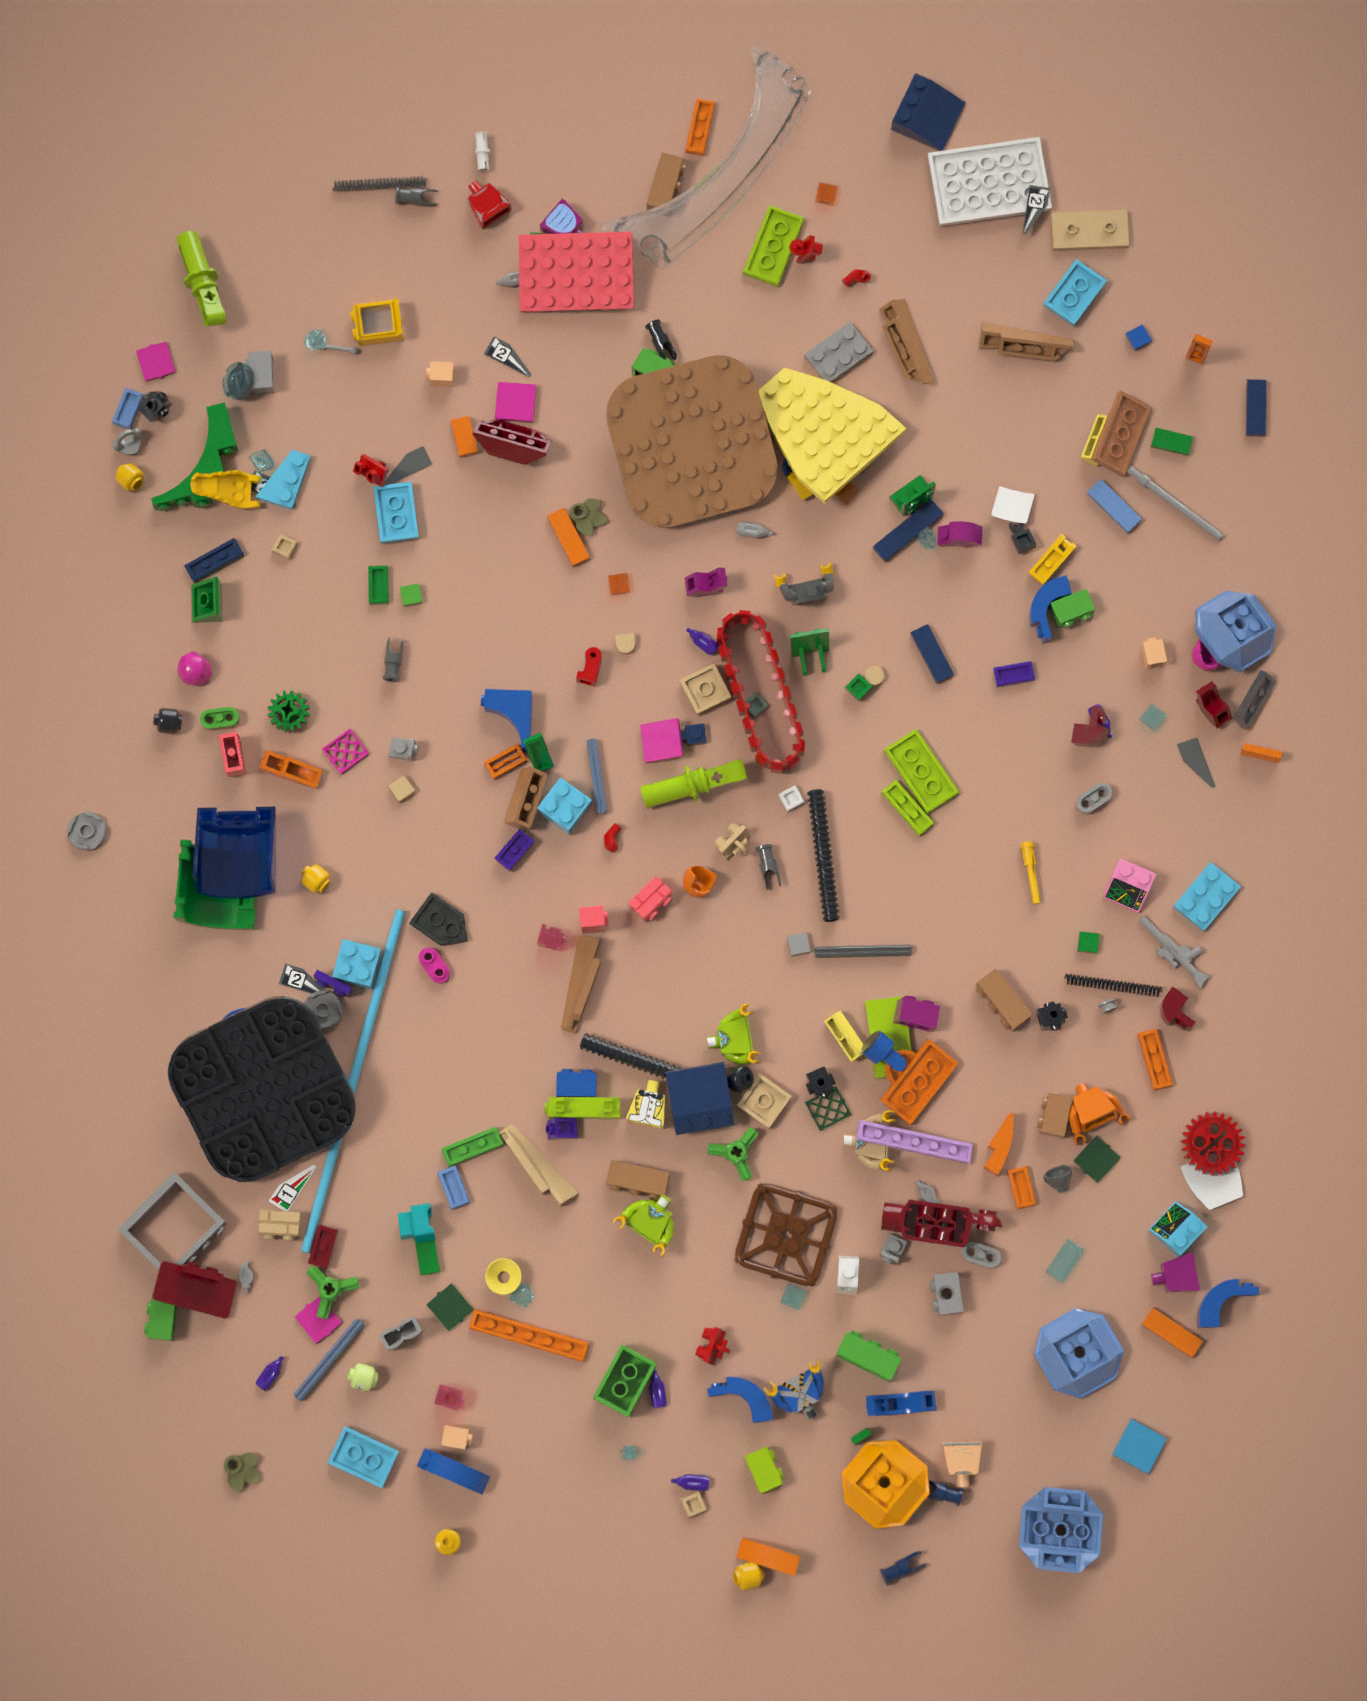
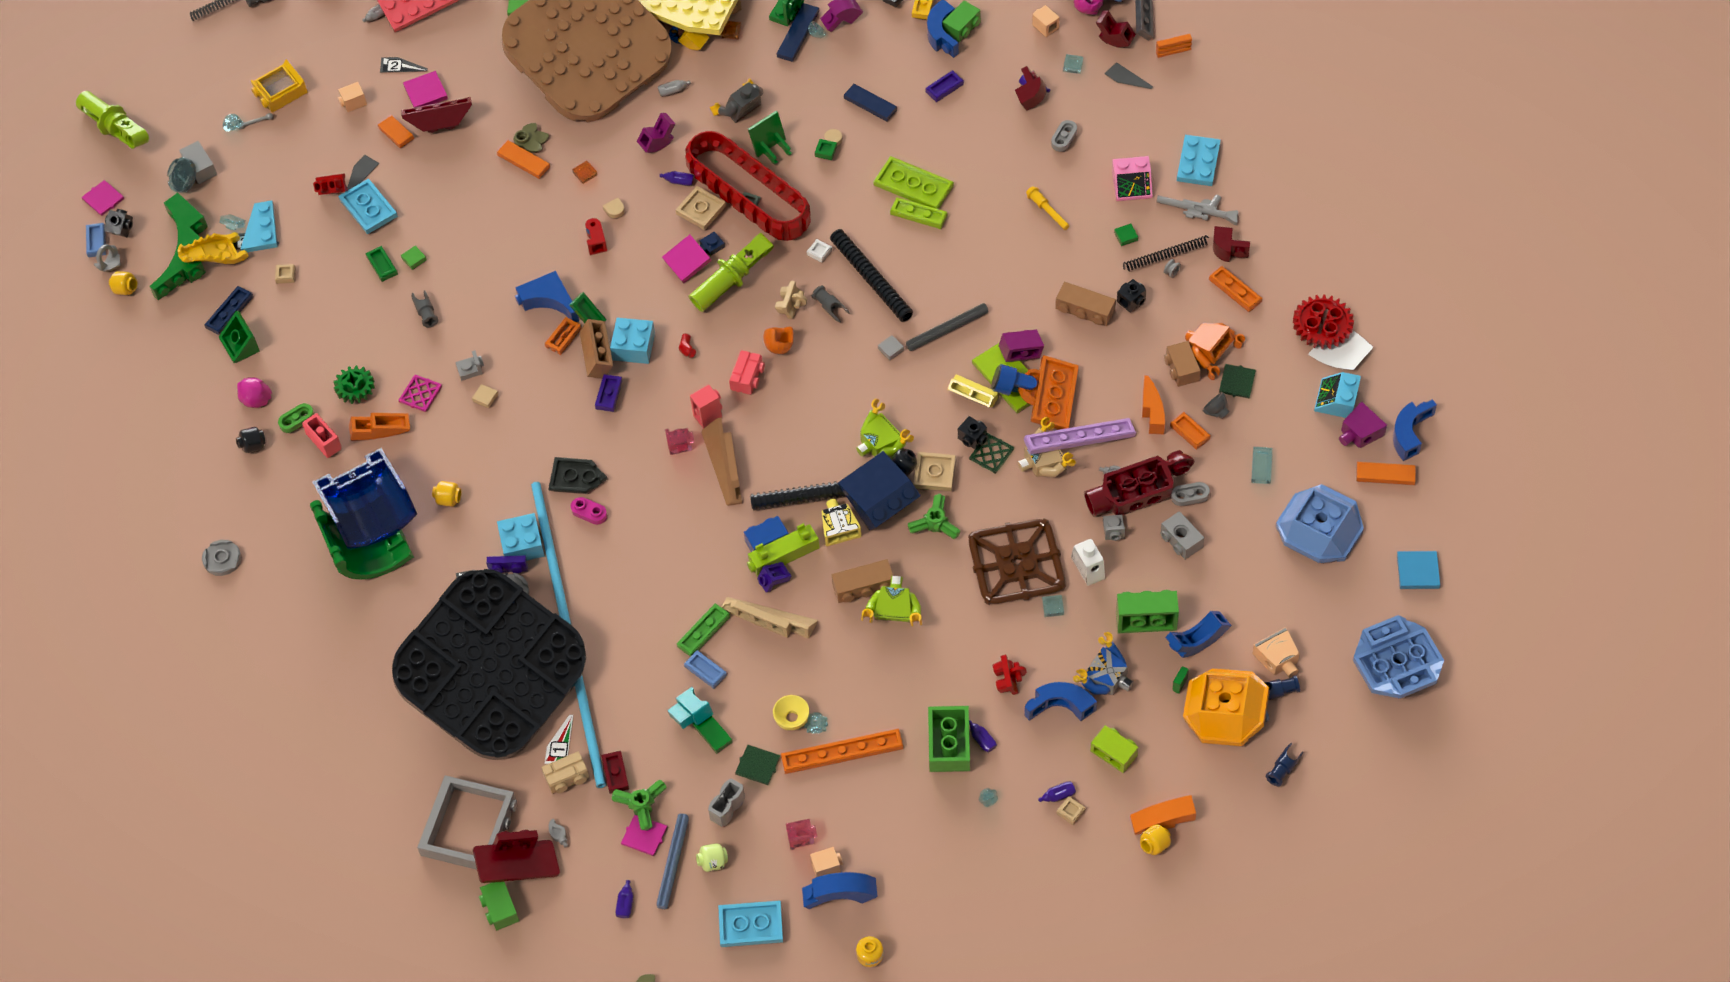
camera: 25 degrees left, 20 degrees down
(597, 776) = (647, 309): sand blue axle -> none

